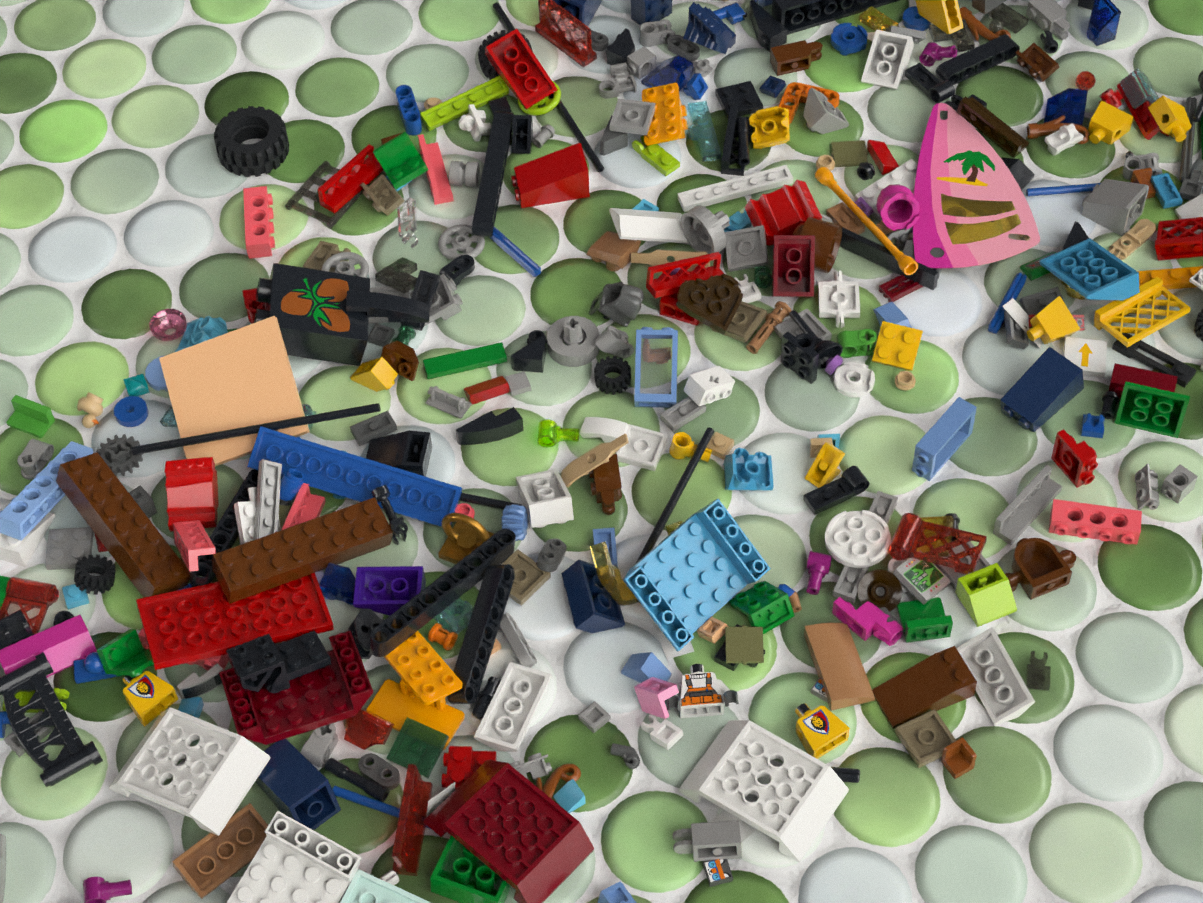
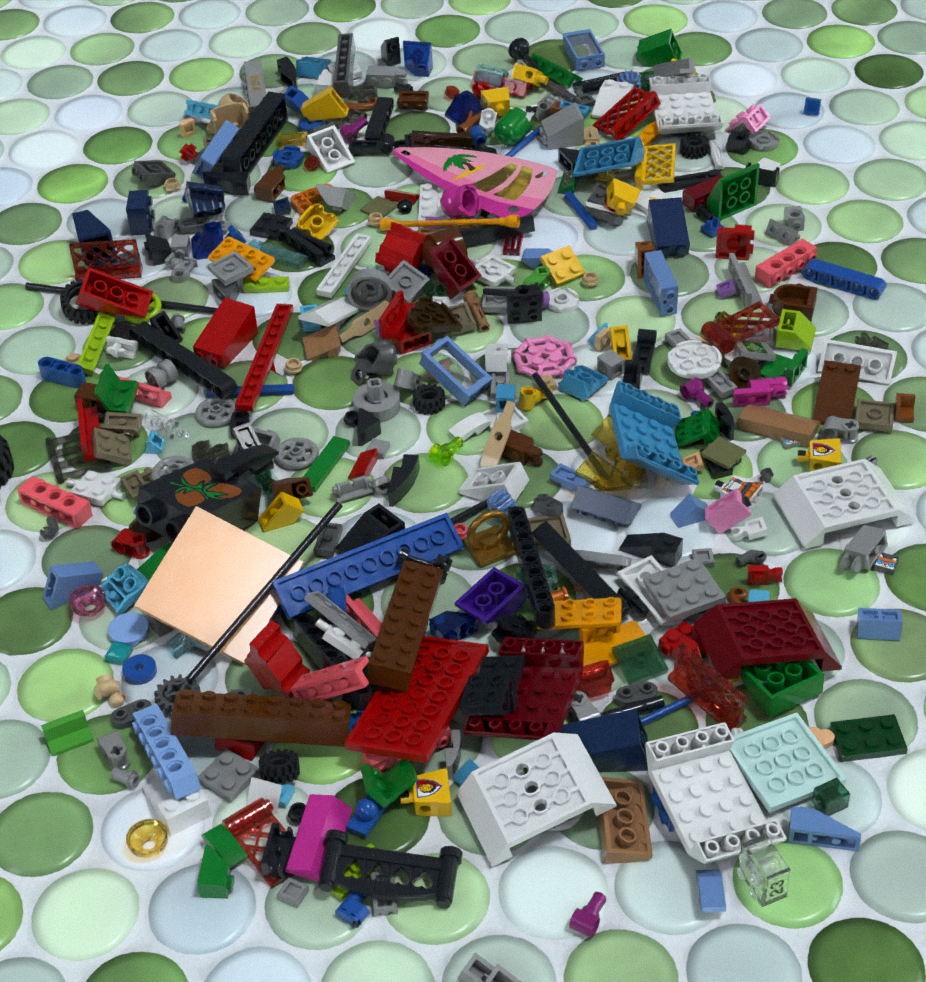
camera: 50 degrees left, 10 degrees down
(15, 484) = (129, 778): none -> light grey pin
(62, 584) = (266, 790): none -> white sticker
(82, 437) = (123, 716): none -> dark grey plate
(179, 296) = (66, 578): none -> medium blue slope
(232, 243) = (52, 528): none -> dark grey arm
(298, 234) = (96, 487): none -> white plate
(348, 208) = (111, 446): none -> dark tan plate
(383, 231) = (154, 443): none -> medium azure slope
(460, 337) = (297, 453): none -> light grey plate
(469, 414) = (381, 482): none -> light grey tile
(523, 727) = (684, 590): none -> light grey plate
(551, 223) = (264, 358): none -> red plate
(563, 240) = (279, 365): none -> white sticker
(565, 251) = (293, 365): none -> tan plate
(570, 671) = (662, 546): none -> black slope
(604, 776) = (762, 574): none -> red plate
(658, 429) = (505, 393): none -> dark azure brick
(759, 411) = (535, 356): none -> bright pink plate
(790, 477) = (610, 364): none -> light grey brick
(792, 506) = (633, 373): none -> black panel
(795, 621) = (726, 420): none -> black slope
(857, 61) = (311, 163): none -> clear red tile
(873, 722) = (840, 428): none -> light grey piece
(980, 395) = (640, 250): none -> dark orange torso
(1002, 497) = (726, 288): none -> medium lavender tile
(1033, 148) = (478, 135): none -> blue brick
(1068, 164) = (512, 127): none -> green cylinder
(1122, 586) = (844, 279): none -> blue beam

